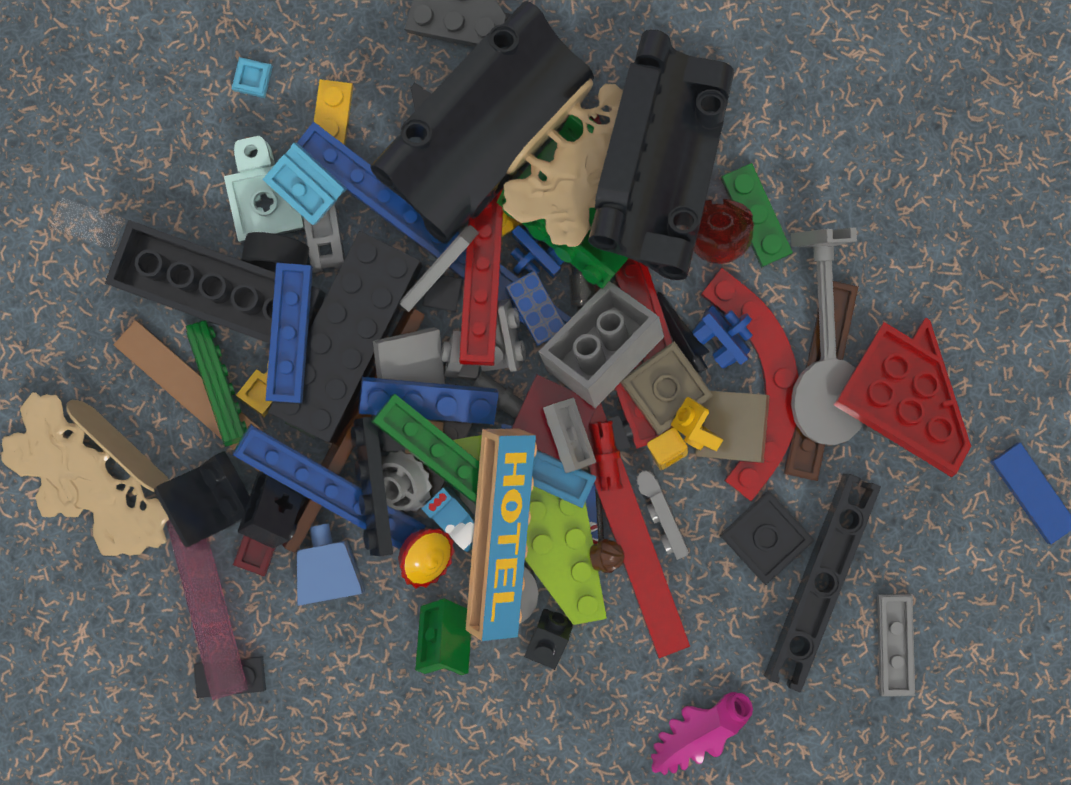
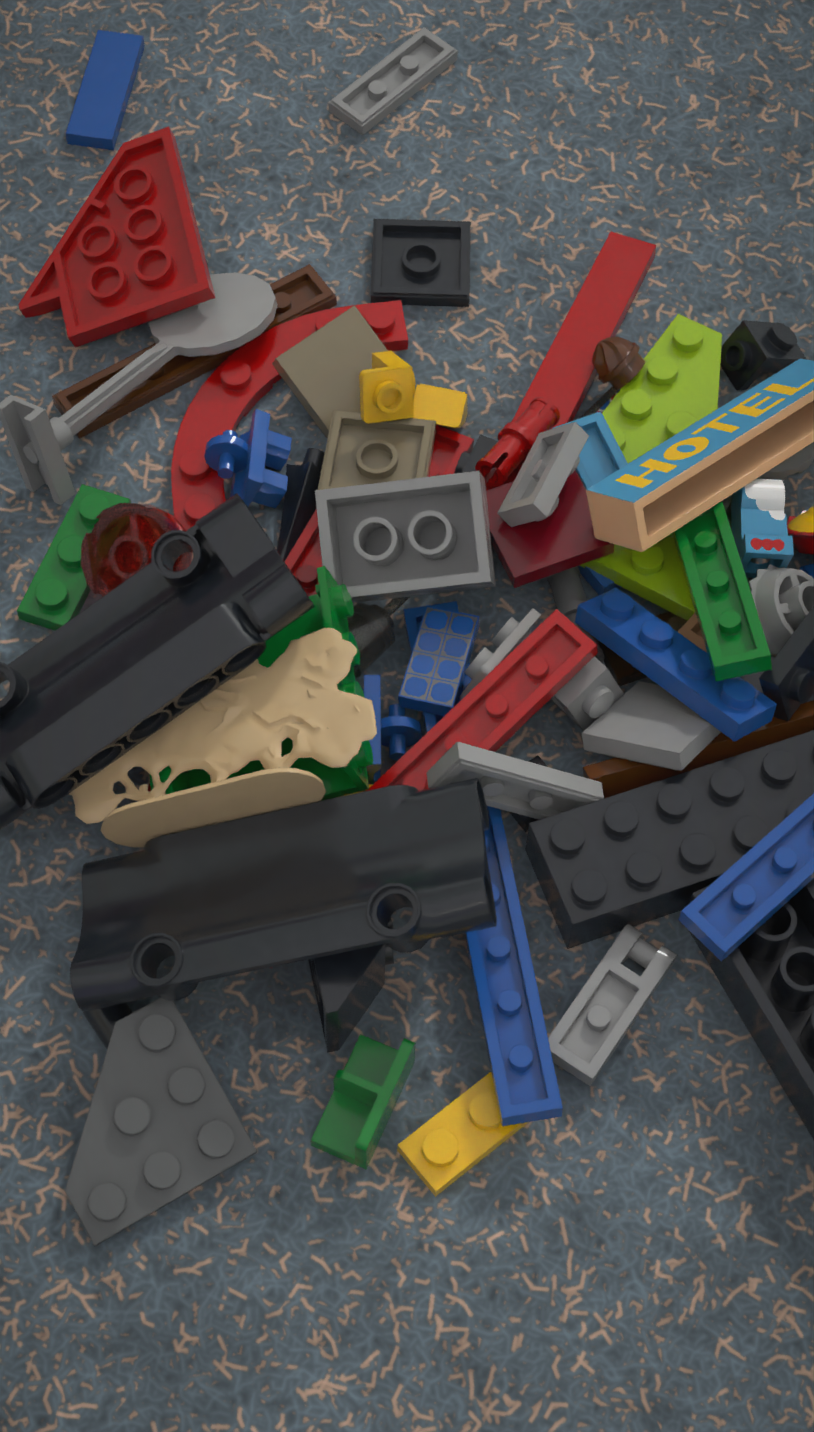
camera: 135 degrees left, 25 degrees down
(247, 187) = (638, 1132): light aqua plate -> none
(252, 77) = (525, 1287): medium azure tile -> none
(268, 249) = (710, 1000): black tyre -> none
(304, 183) = (590, 1047): medium azure plate -> none
(383, 89) = (363, 1100): none -> green panel
(661, 512) = (510, 362): light grey hinge -> none
(701, 732) = (676, 158): dark pink plant -> none
(814, 607) = (406, 176): black piece -> none

